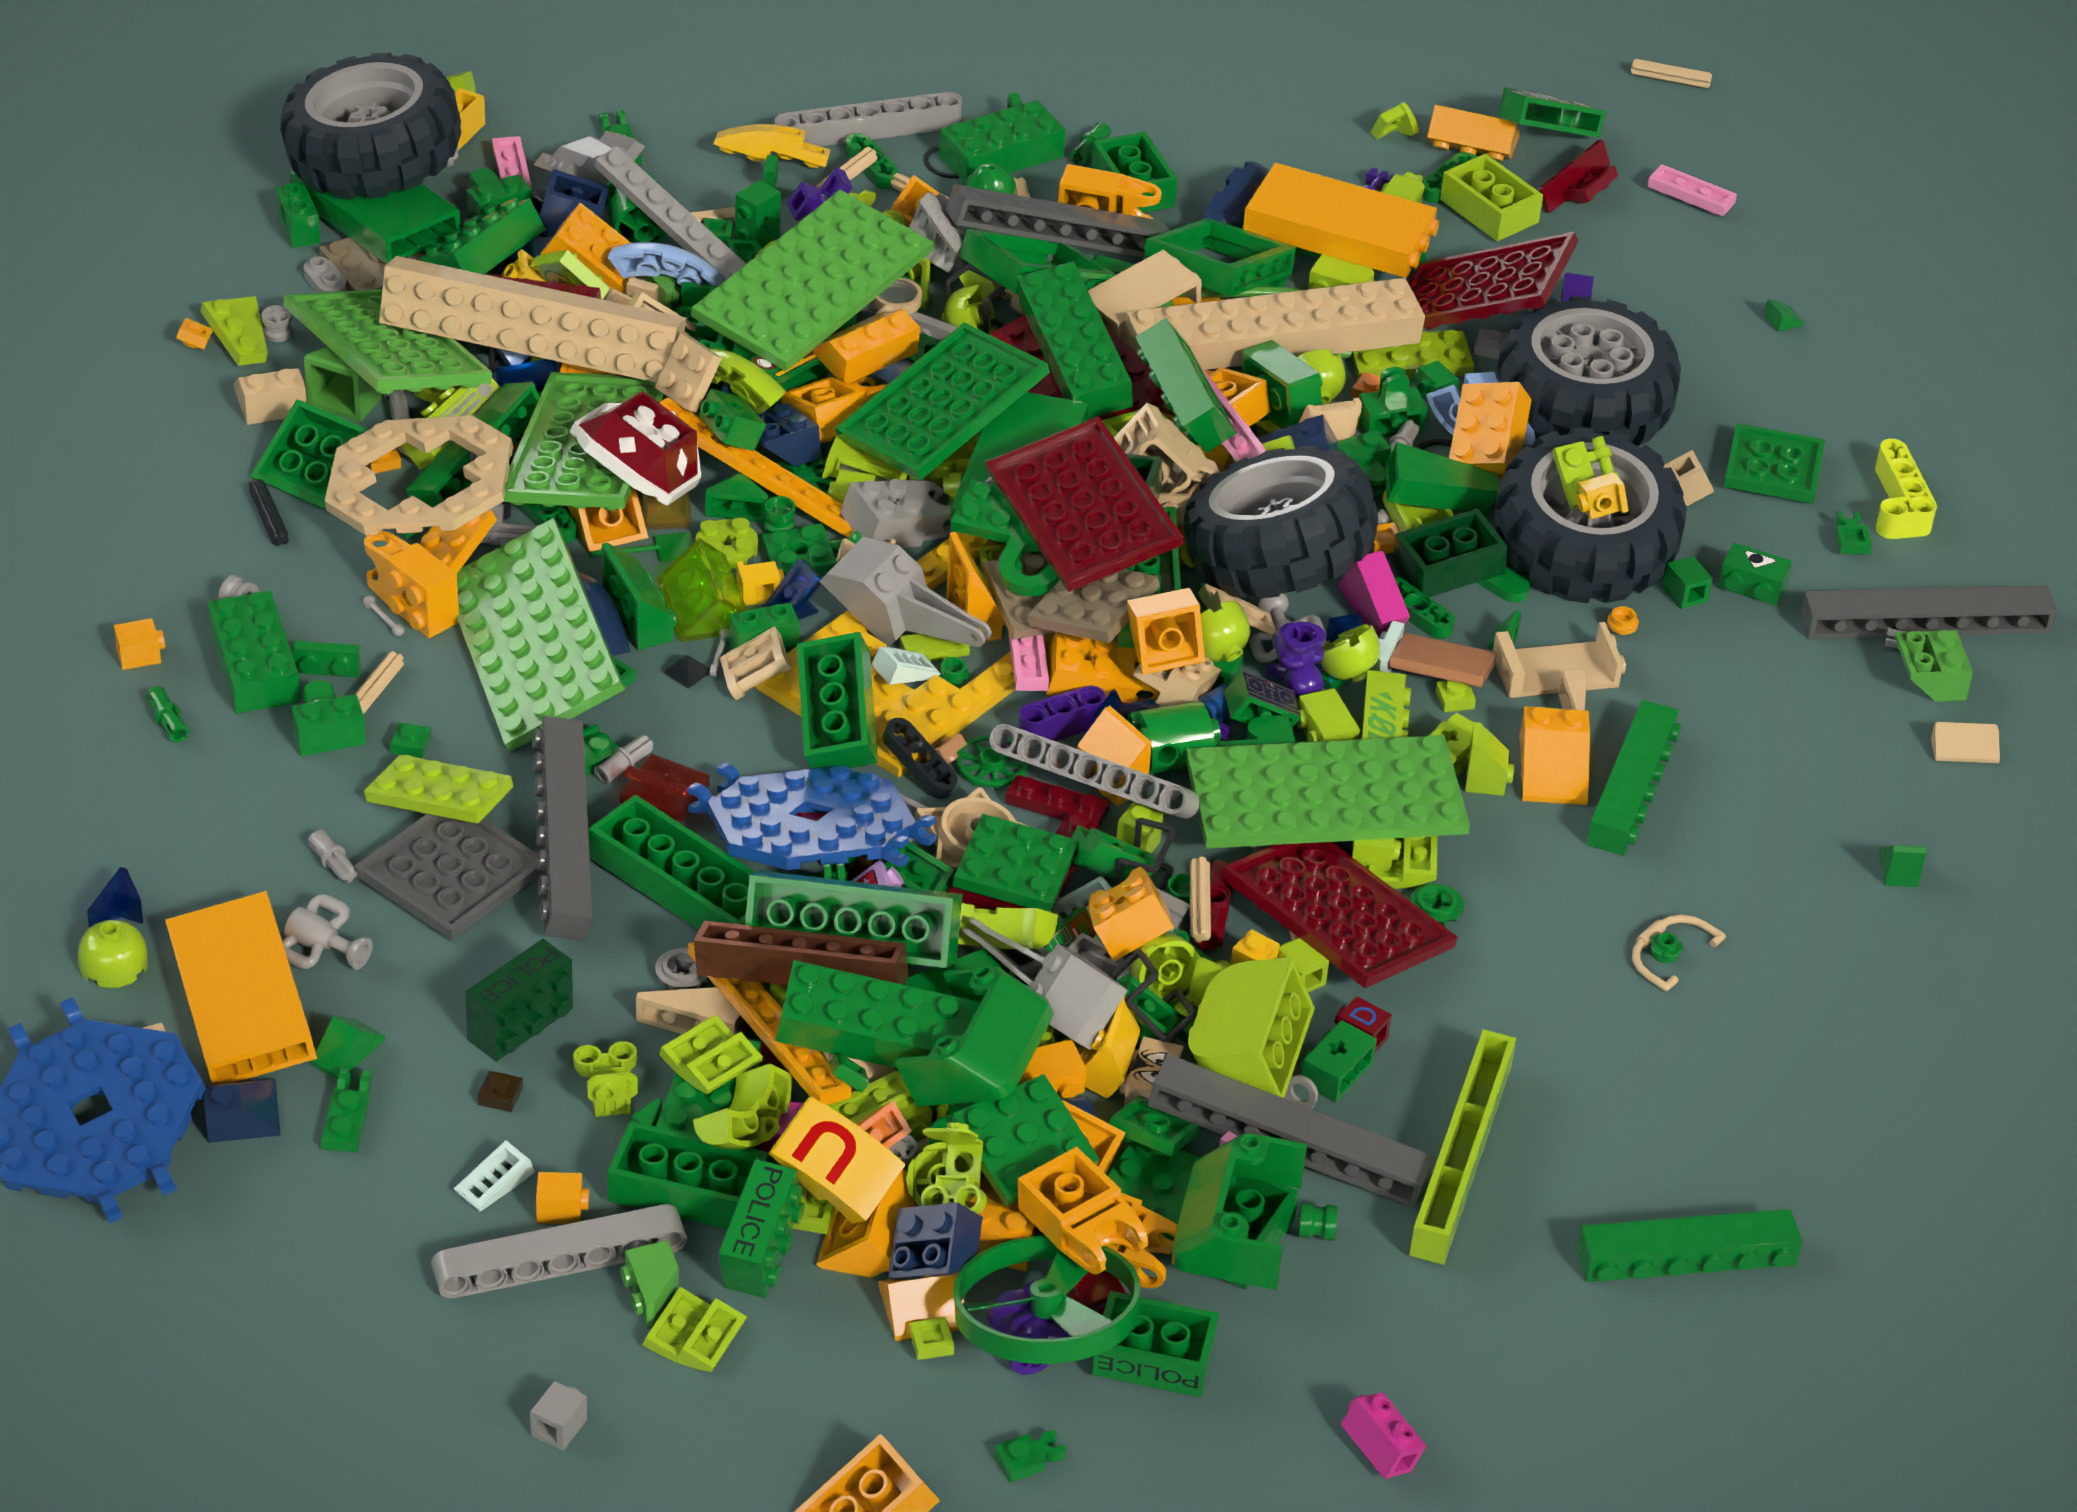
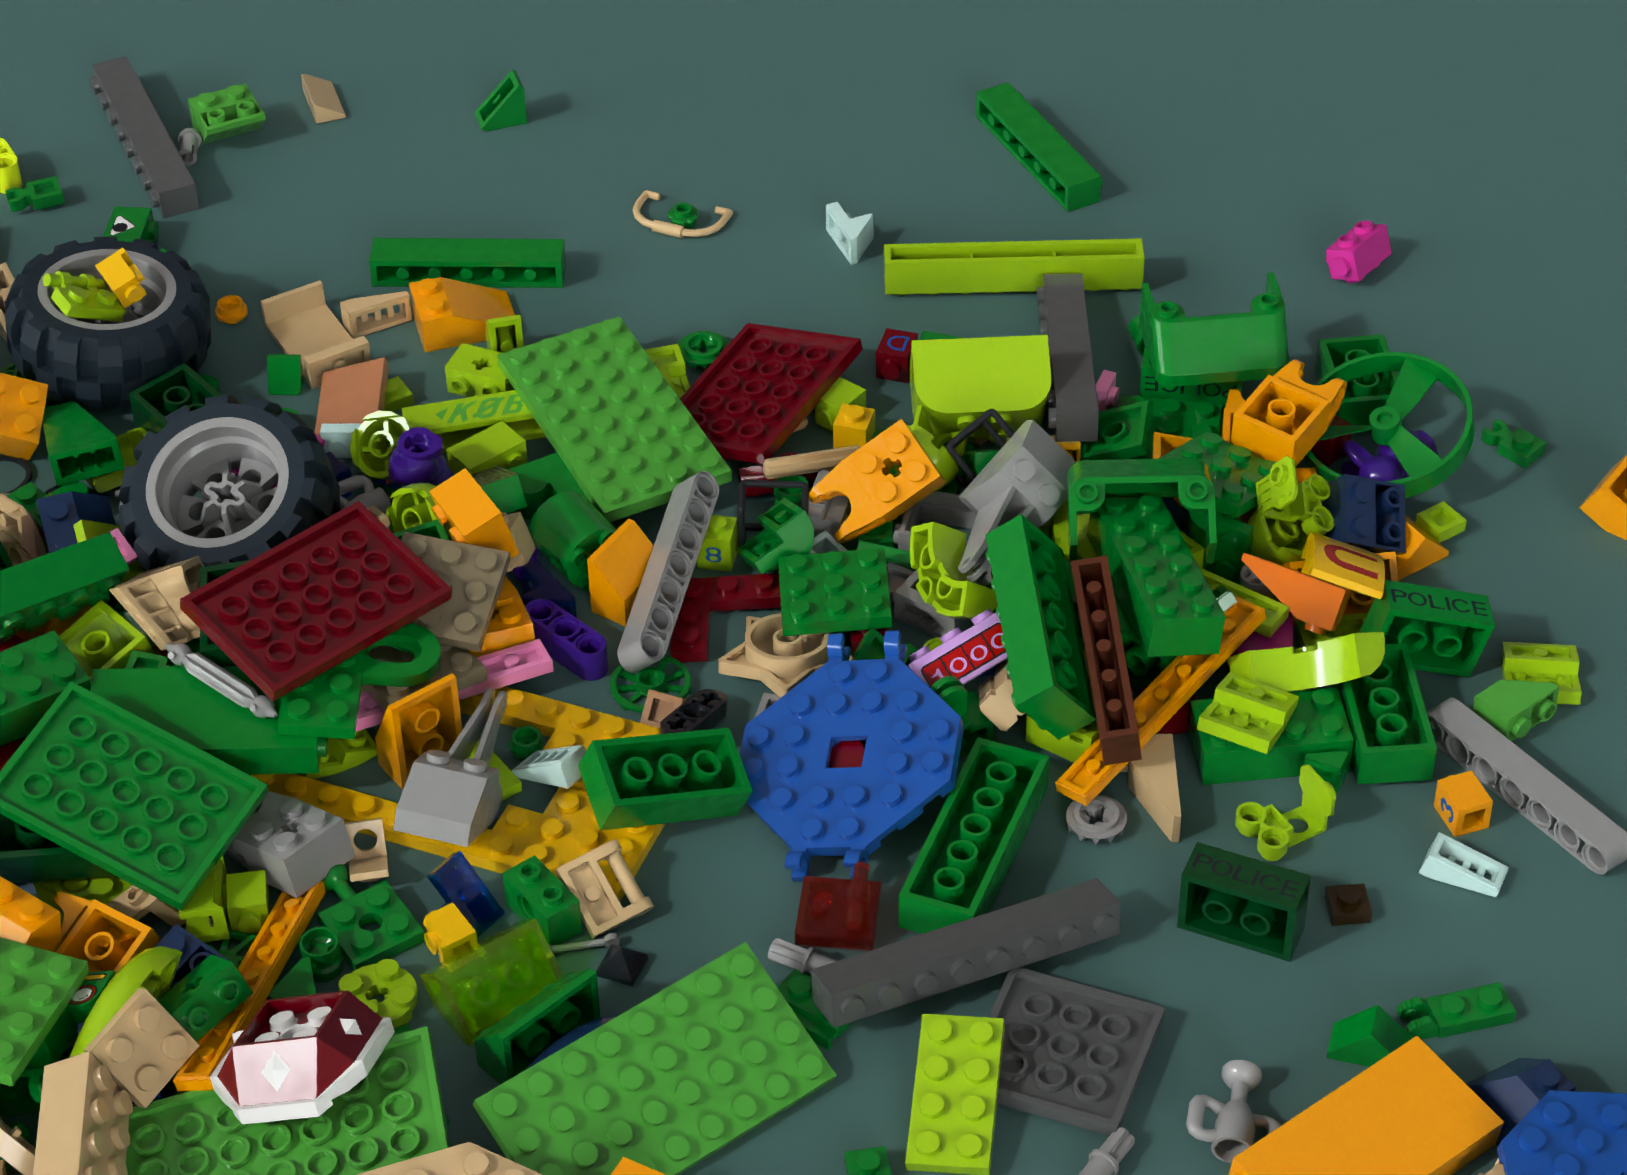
camera: 105 degrees left, 0 degrees up
(1579, 1049) = (849, 233): none -> light aqua slope

